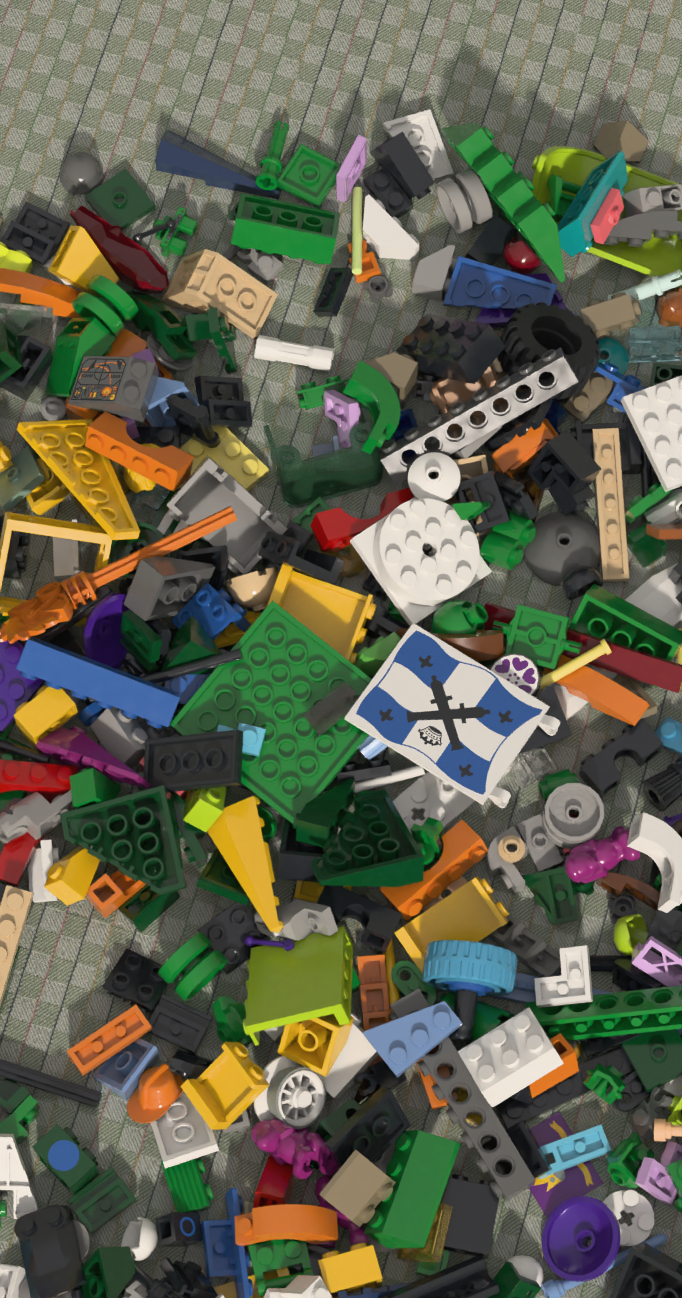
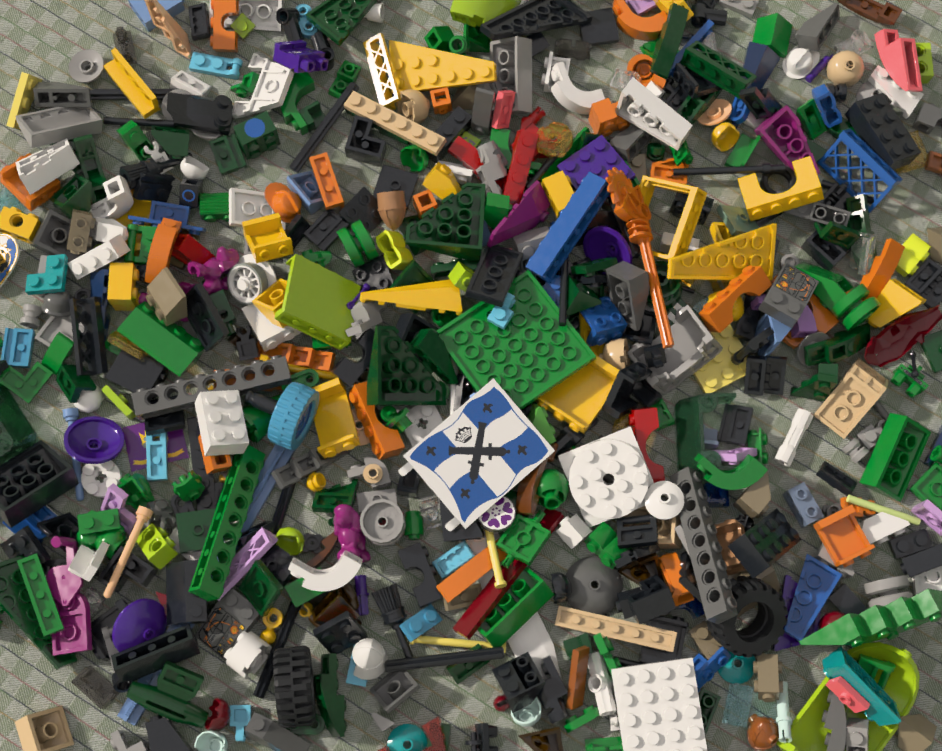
camera: 100 degrees right, 5 degrees up
(36, 1013) = (362, 145): none -> black brick
(38, 930) = (414, 157): none -> green hair
(85, 950) = (396, 180): none -> black plate
(126, 936) = (392, 208): none -> medium nougat helmet
(181, 921) = (394, 249): none -> neon yellow brick
(240, 538) = (655, 356): none -> black tile
(289, 277) = (855, 450): none -> light grey wheel
(298, 425) = (735, 424): none -> black plate
(331, 708) = (504, 373): clear smoke hinge -> none
(381, 323) = (802, 505): none -> sand blue brick
(411, 263) = (843, 537): none -> orange panel
(412, 1036) = (257, 361): medium blue wing -> none
(470, 510) = (633, 517): green slope -> none
(503, 584) = (573, 530): none -> white brick
(513, 812) = (409, 484): none -> black slope
(514, 1228) = (120, 401): none -> lime plate
(542, 927) = (316, 481): none -> yellow plate
(572, 986) = (262, 484): white plate -> none
(587, 723) = (453, 559): none -> medium azure plate

